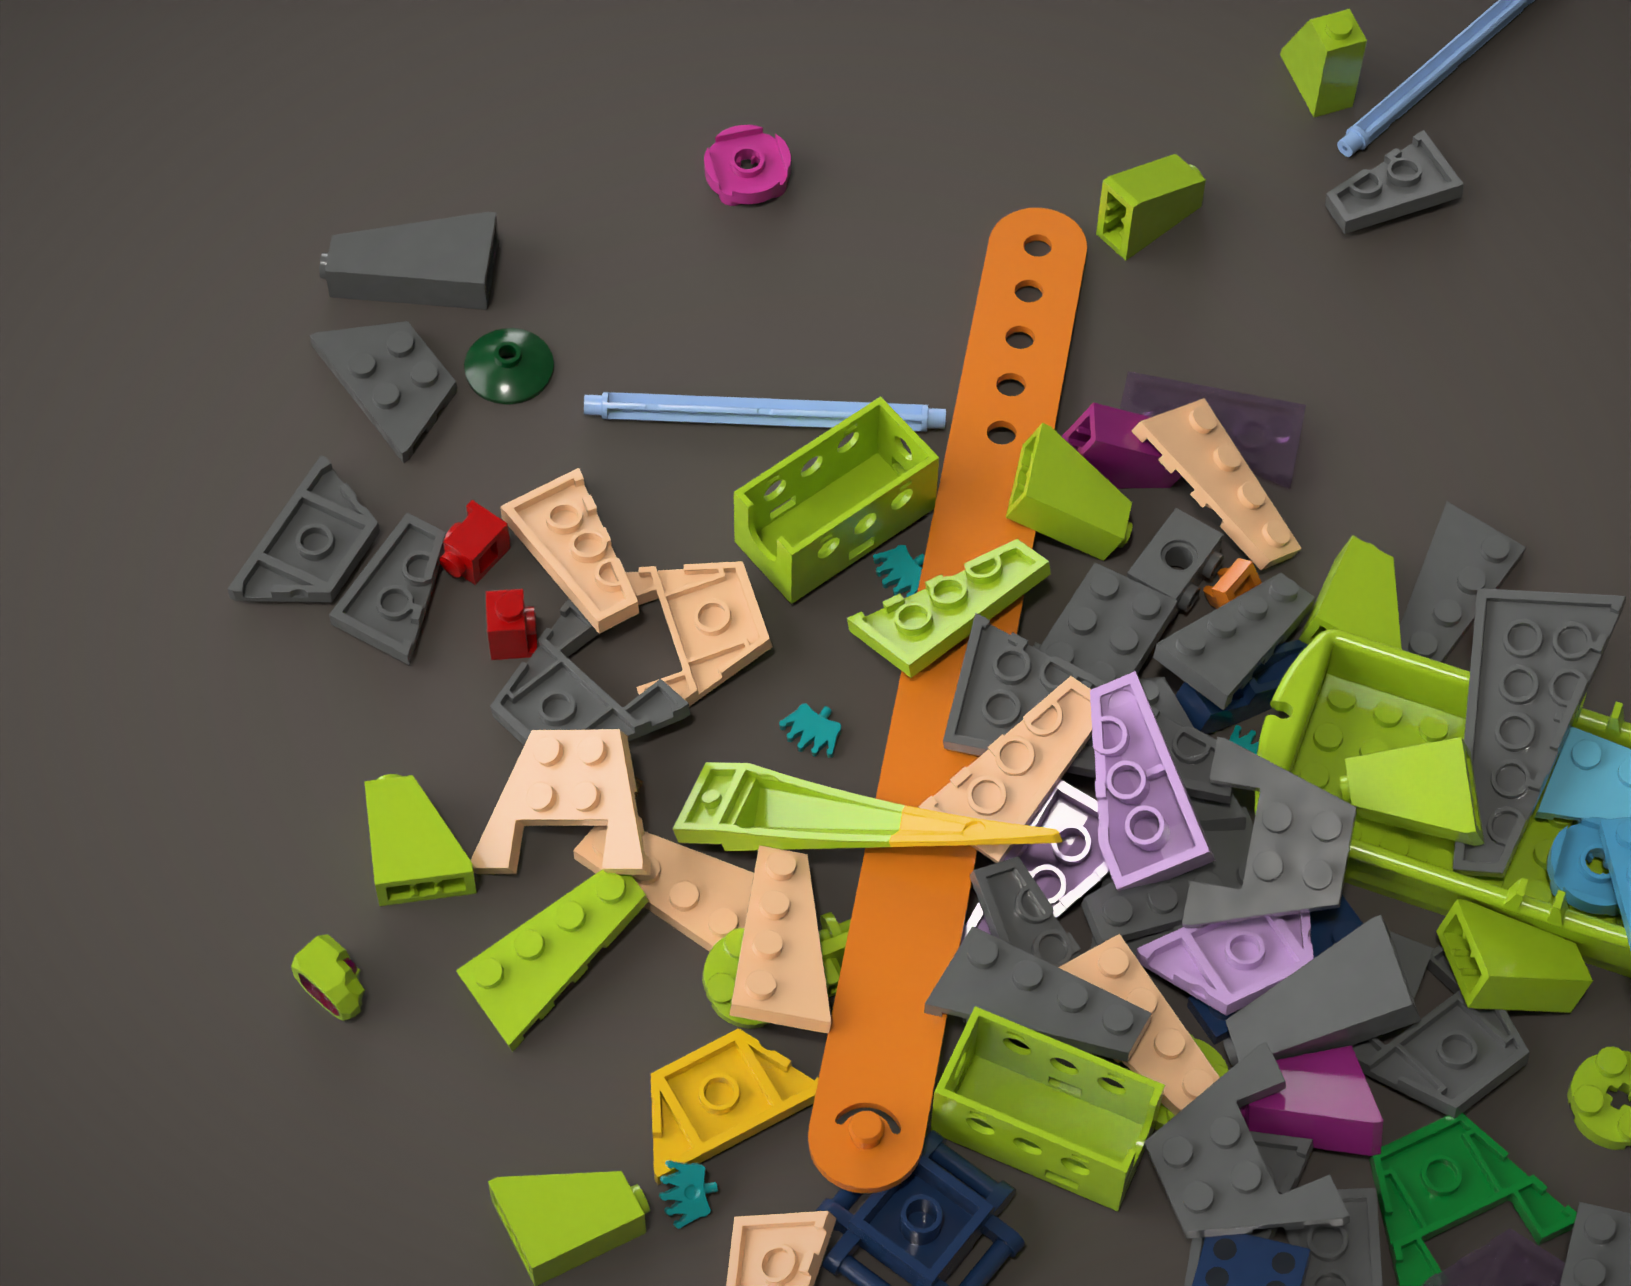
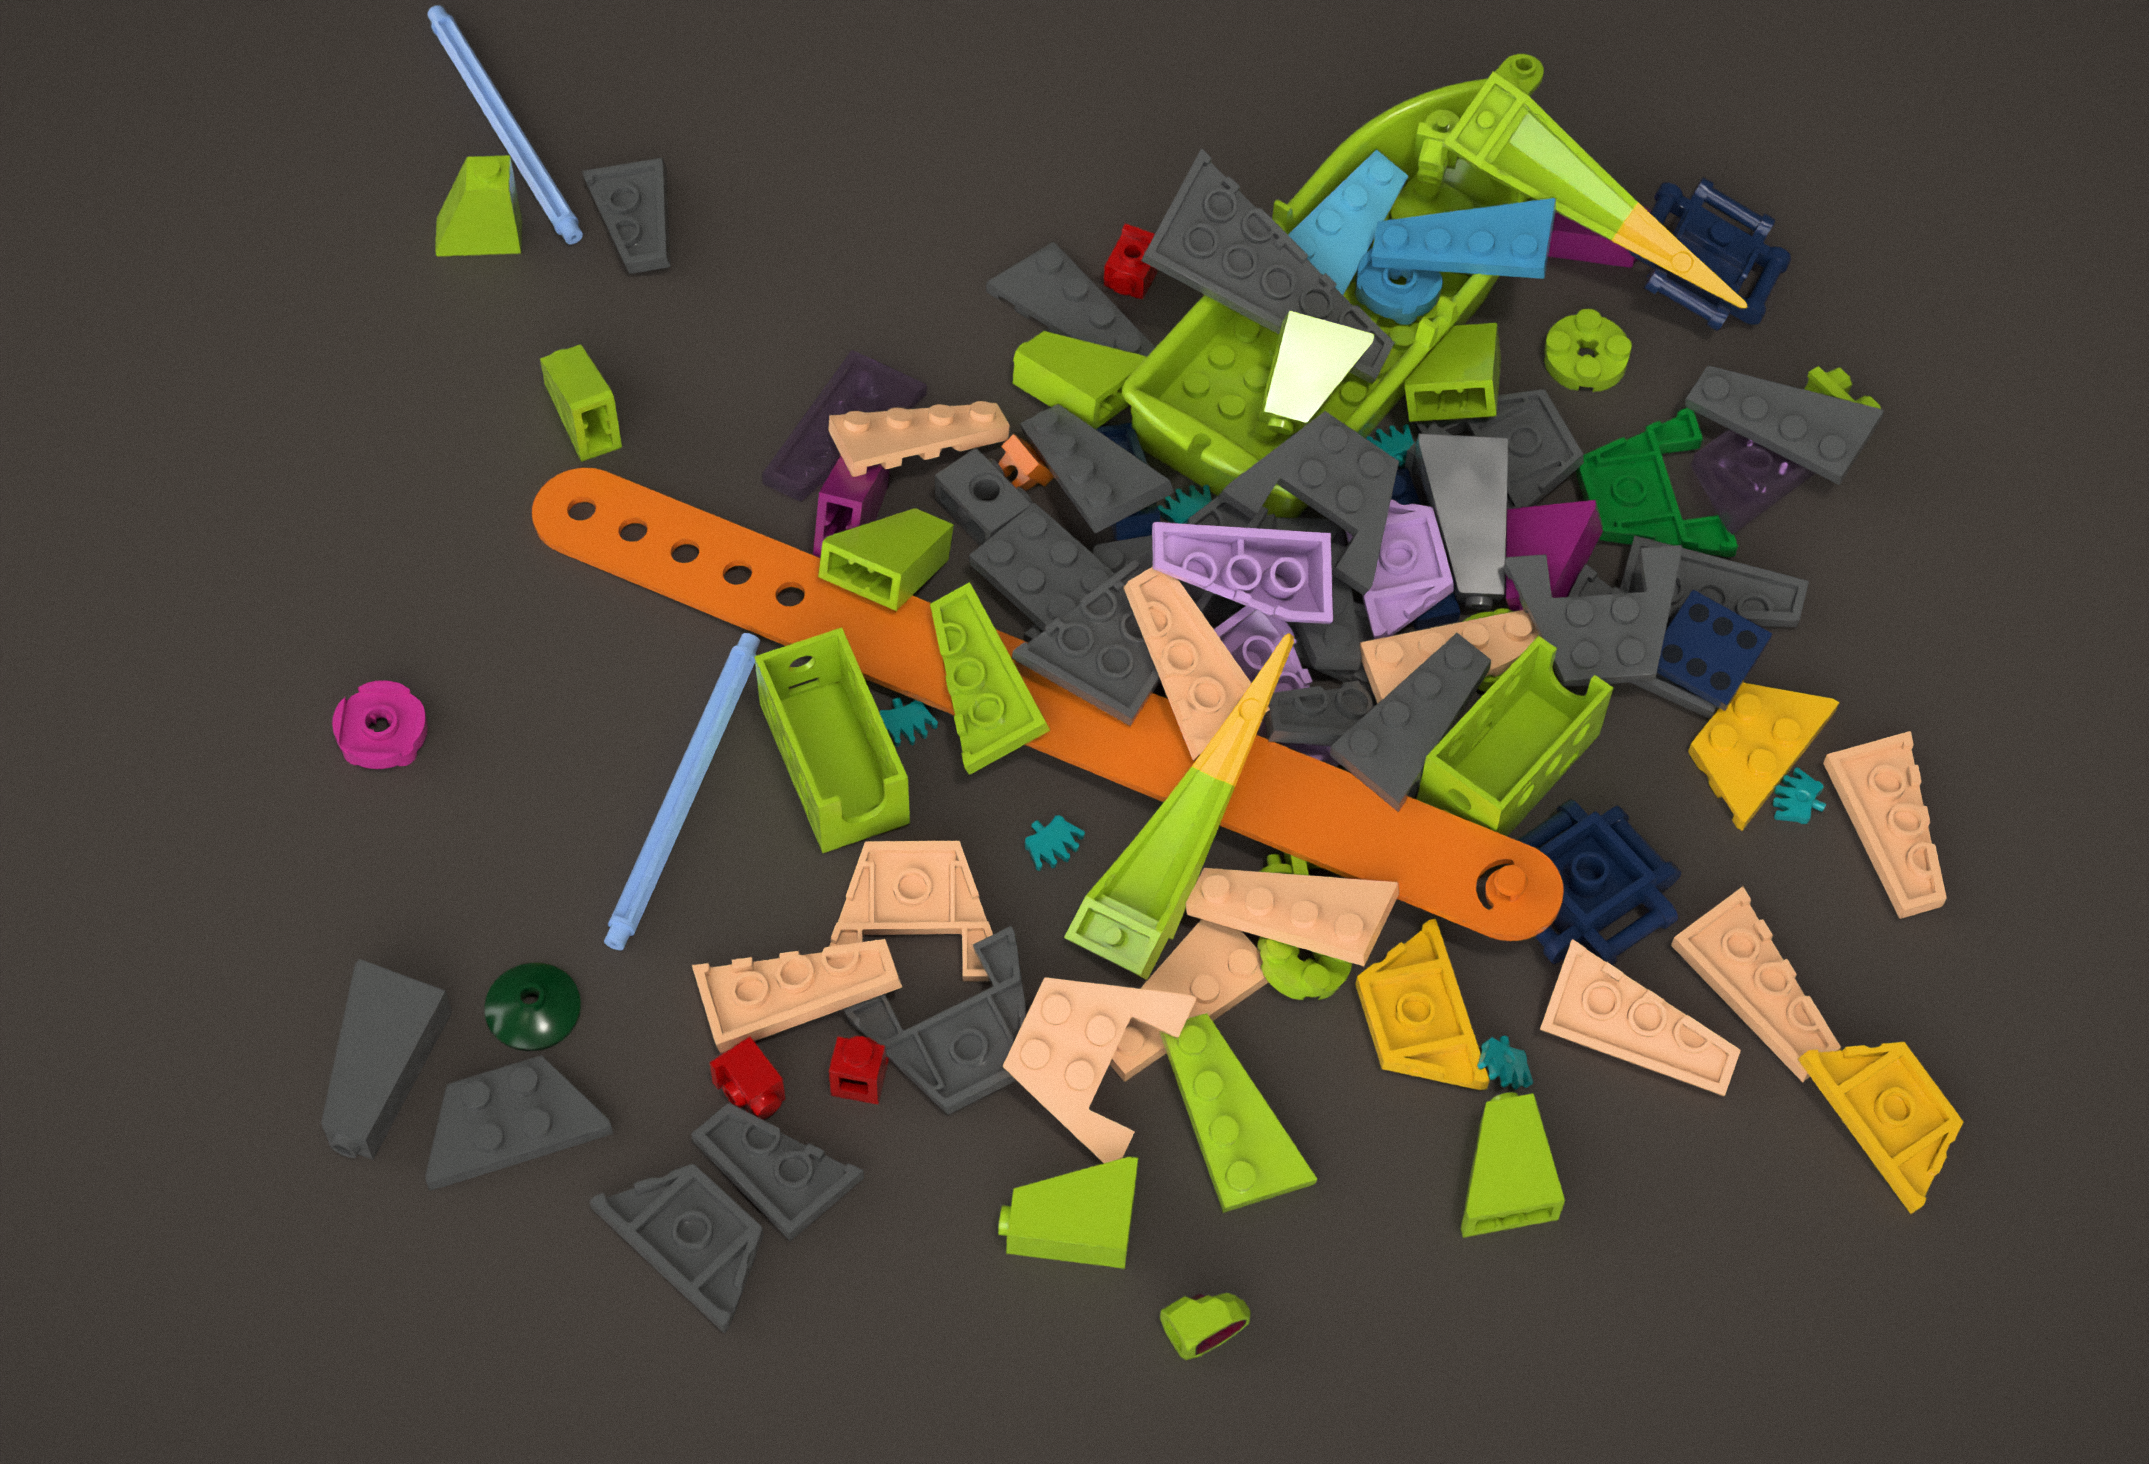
camera: 75 degrees left, 0 degrees up
(1408, 926) = (1396, 444): none -> teal piece

